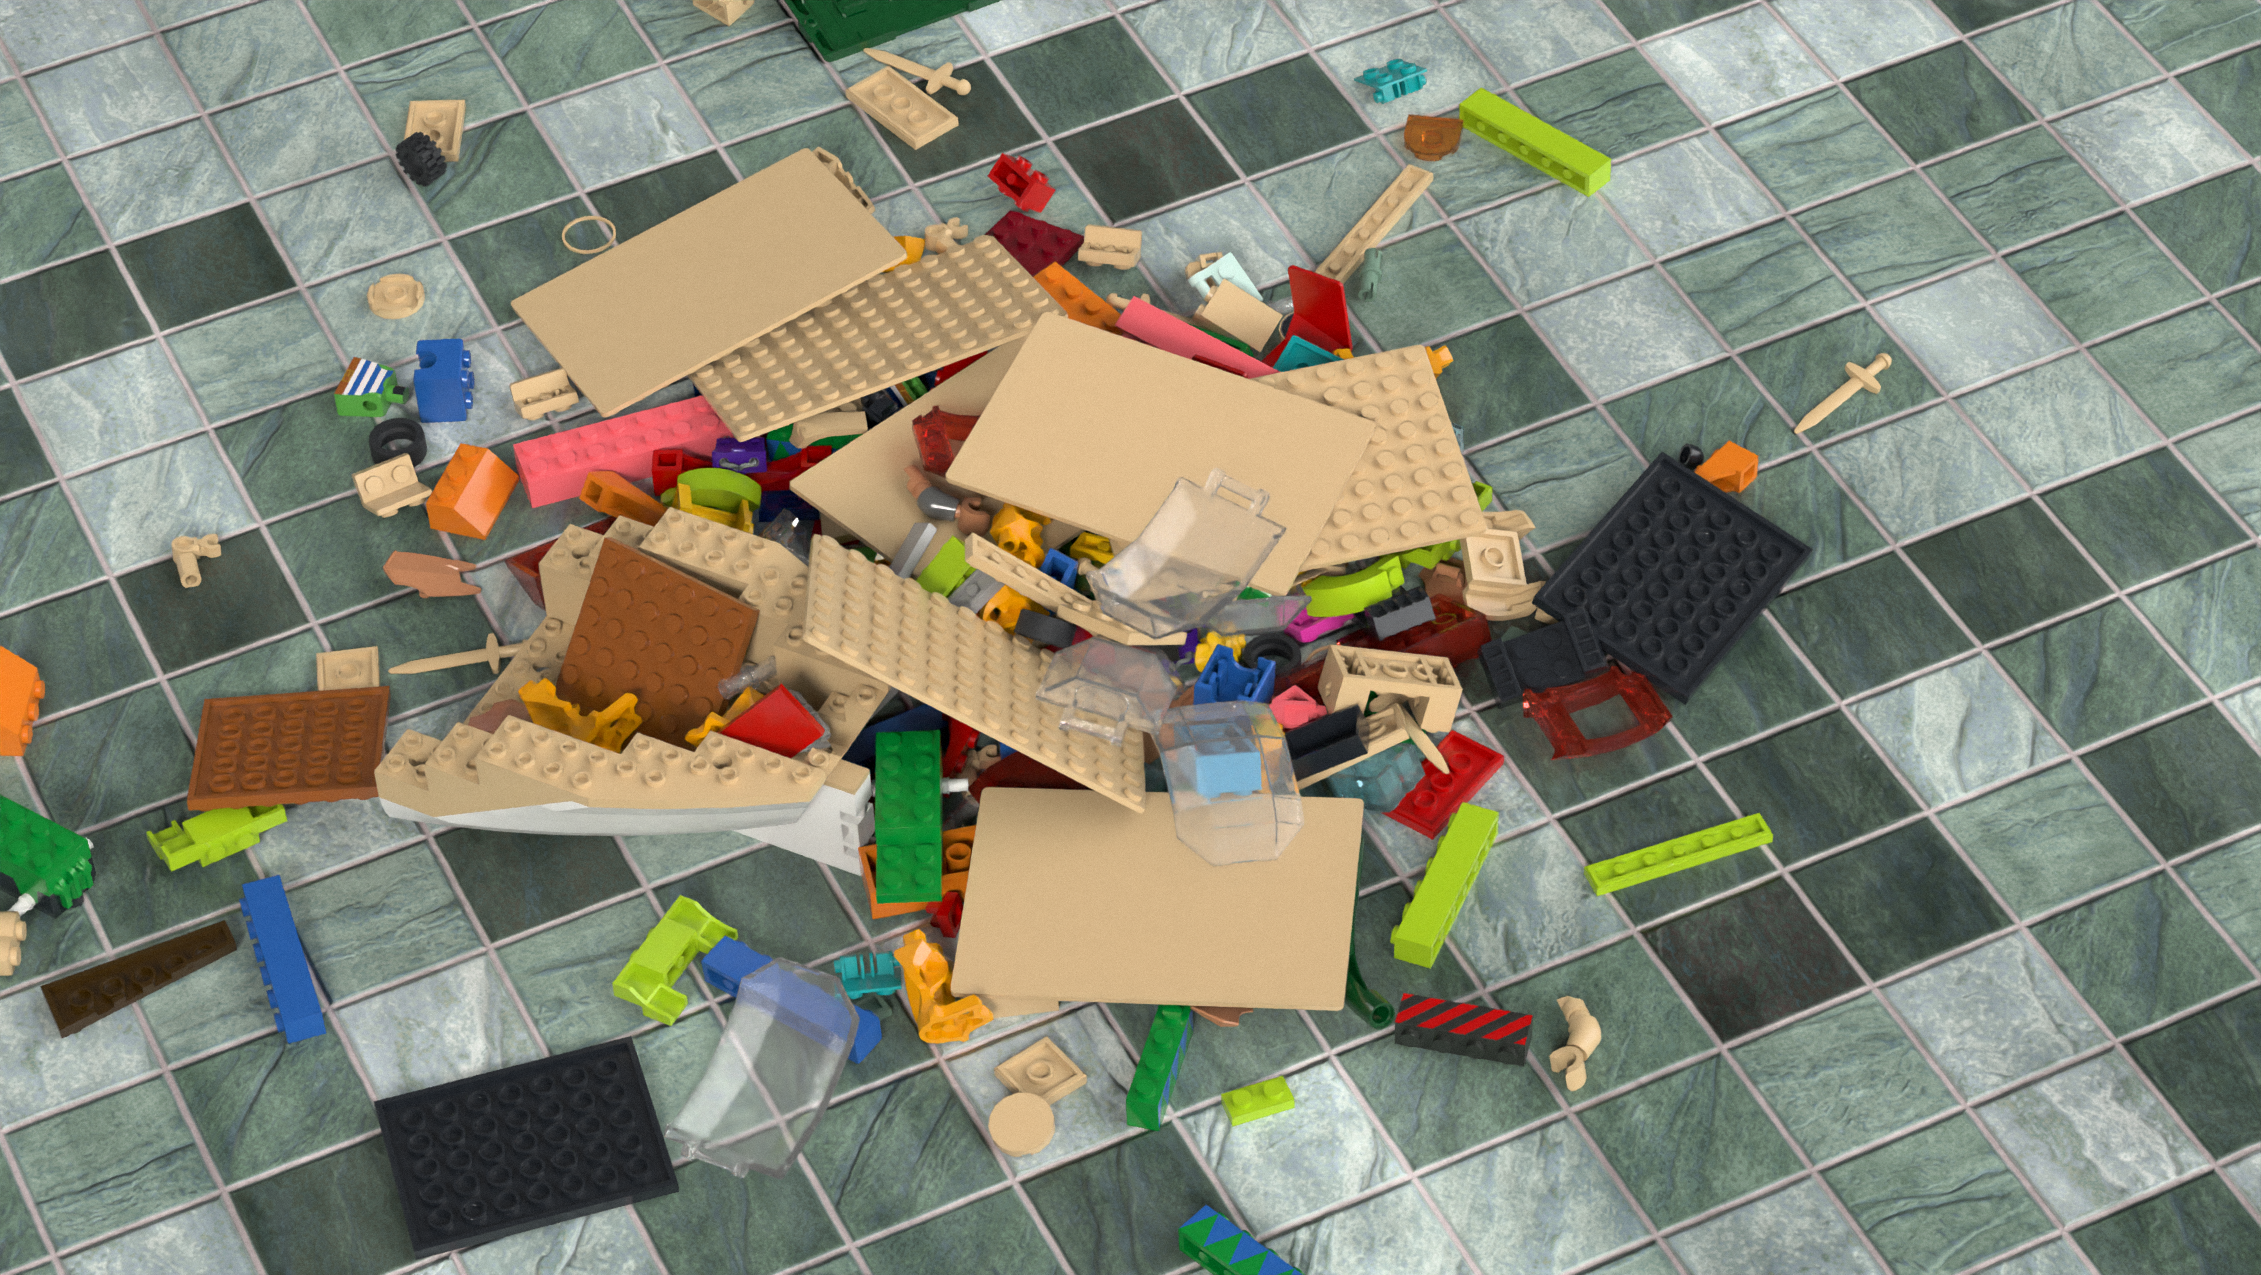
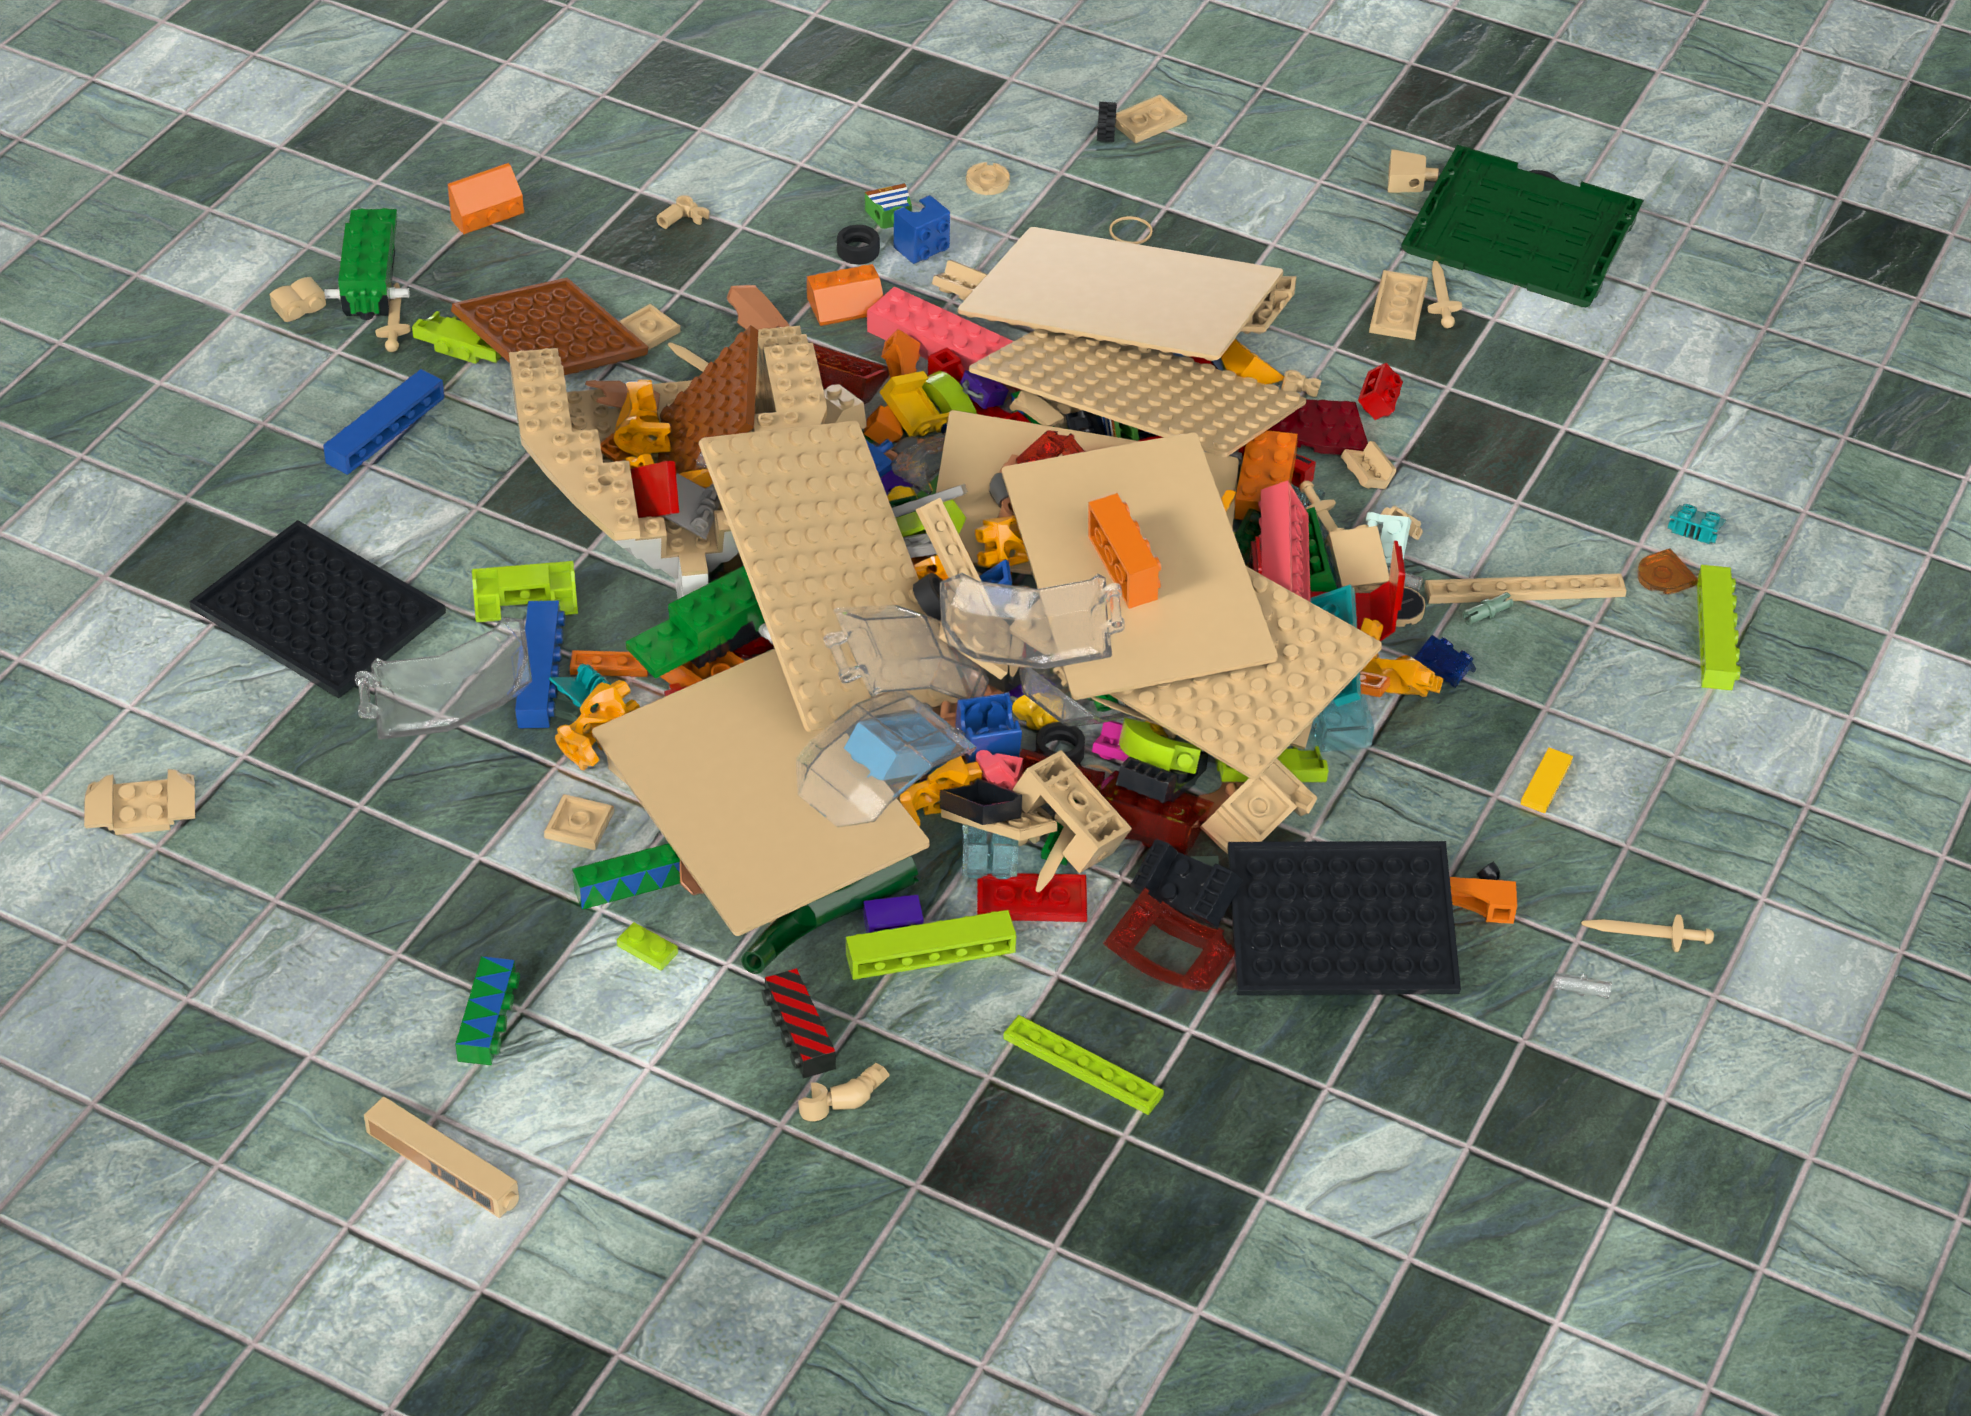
camera: 50 degrees right, 0 degrees up
(120, 982) = (310, 365): dark brown wing -> none
(130, 886) = (393, 328): none -> tan sword
(390, 486) = (813, 256): tan bracket -> none
(840, 940) = (608, 663): none -> orange tile
(1021, 1124) = (522, 832): tan tile -> none
(1159, 443) = (1124, 550): none -> orange brick
(1387, 894) = (892, 913): none -> dark purple brick
(1418, 332) = (1445, 661): none -> clear blue bracket
(1612, 357) = (1546, 780): none -> yellow tile
(1871, 470) = (1582, 985): none -> clear pin

